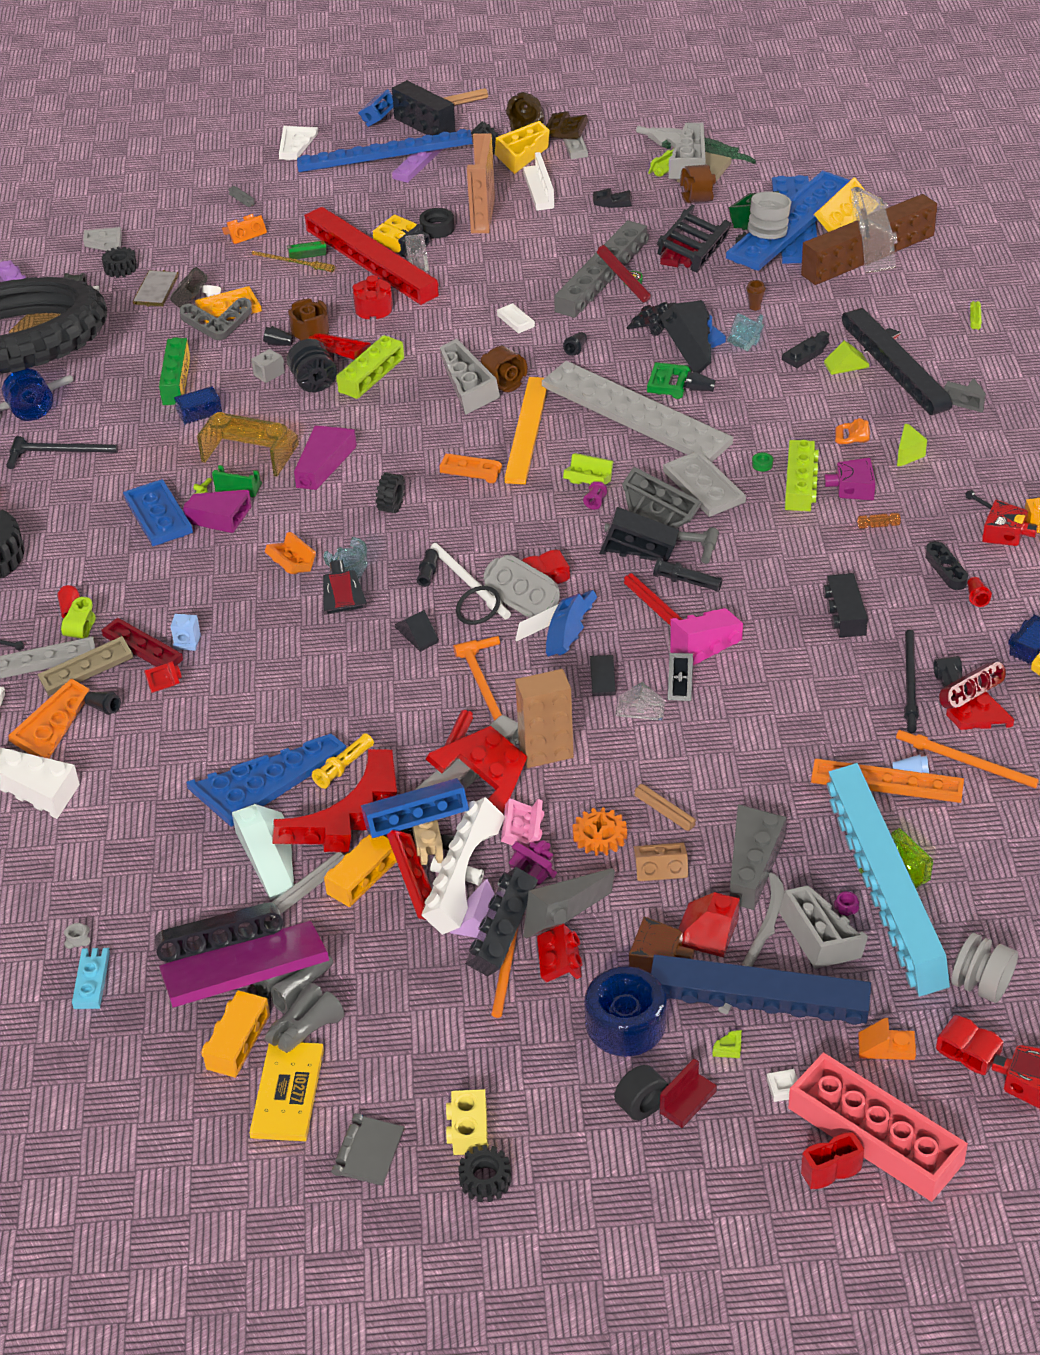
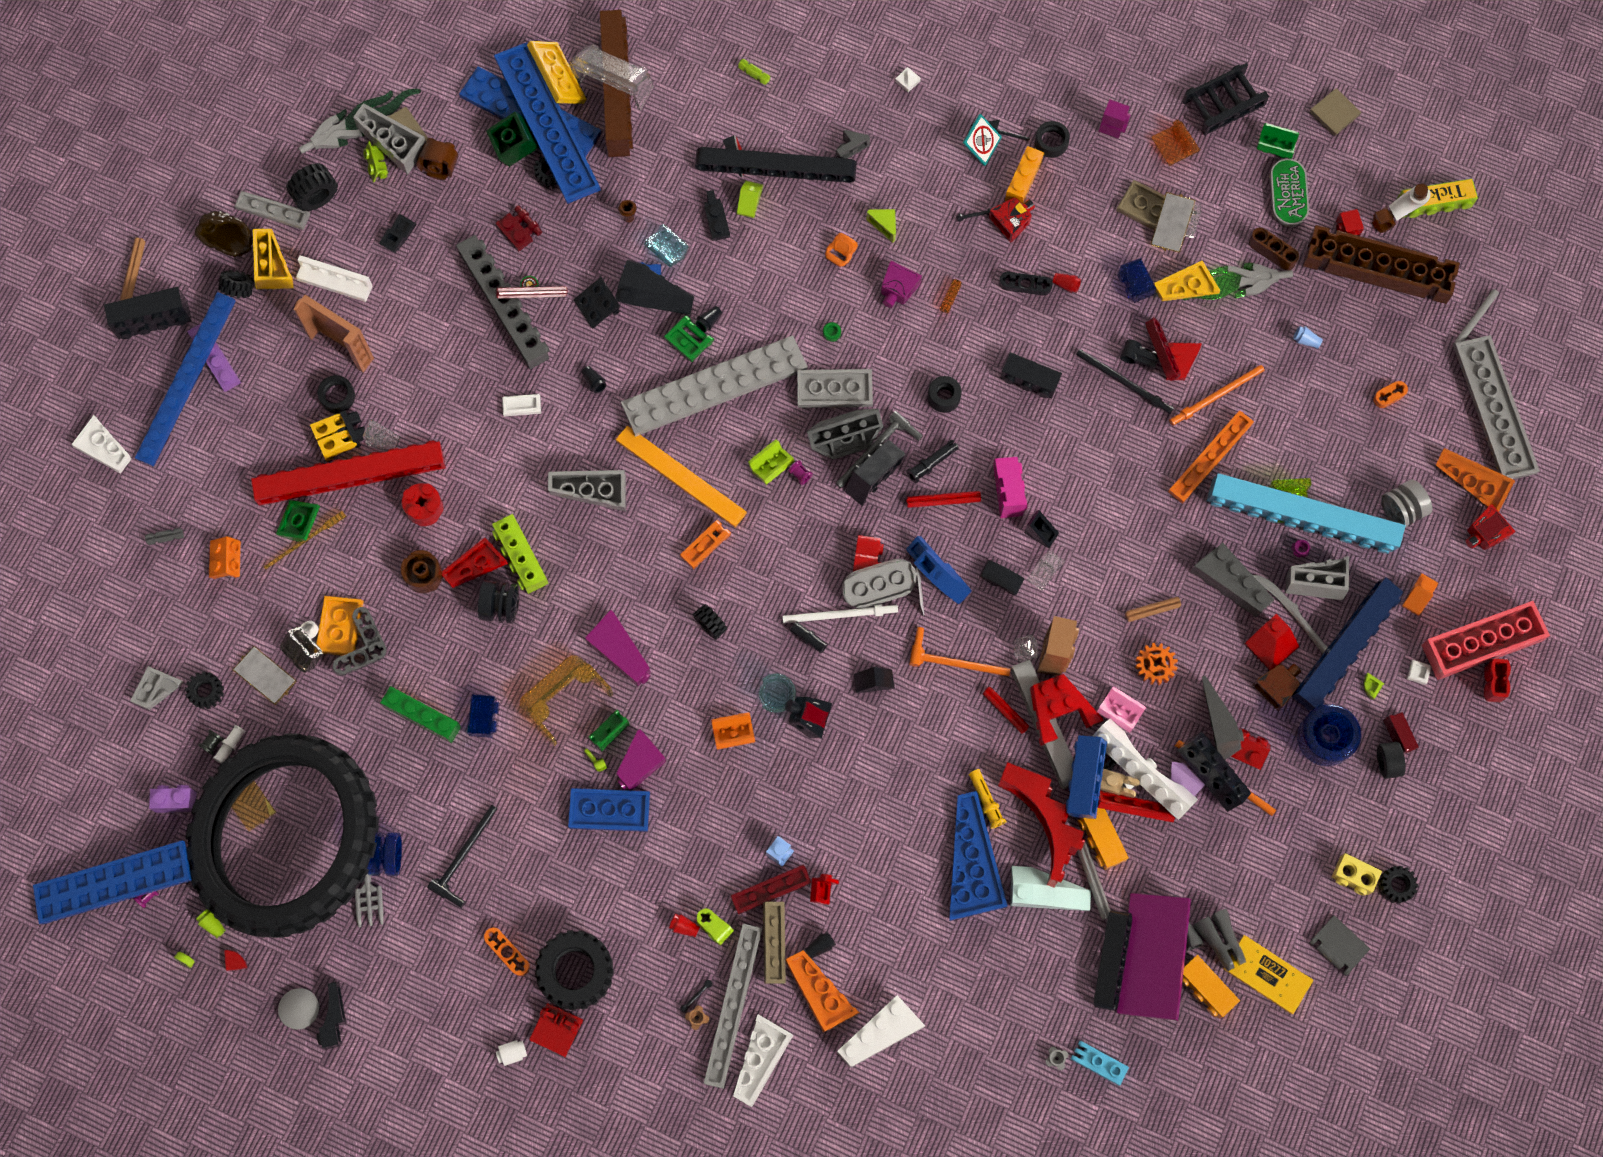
camera: 65 degrees left, 30 degrees up
(268, 365) = (465, 641): light grey brick -> none
(278, 337) = (422, 608): black cone -> none
(375, 111) = (105, 347): blue brick -> none
(490, 615) = (893, 619): black tyre -> none
(506, 367) = (602, 453): reddish brown brick -> none
(540, 866) = (1151, 725): magenta hips -> none
(566, 127) = (258, 207): dark brown slope -> none
(614, 127) = (312, 187): none -> black tyre
(661, 861) = (1201, 639): medium nougat bracket -> none
(705, 250) = (526, 196): black fence -> none
(766, 554) = (947, 383): none -> black tyre
(769, 215) = (555, 142): light grey wheel -> none
(801, 475) = (870, 317): lime brick -> none
(916, 764) = (1208, 433): light blue cone -> none
(969, 1044) = (1449, 549): red brick -> none

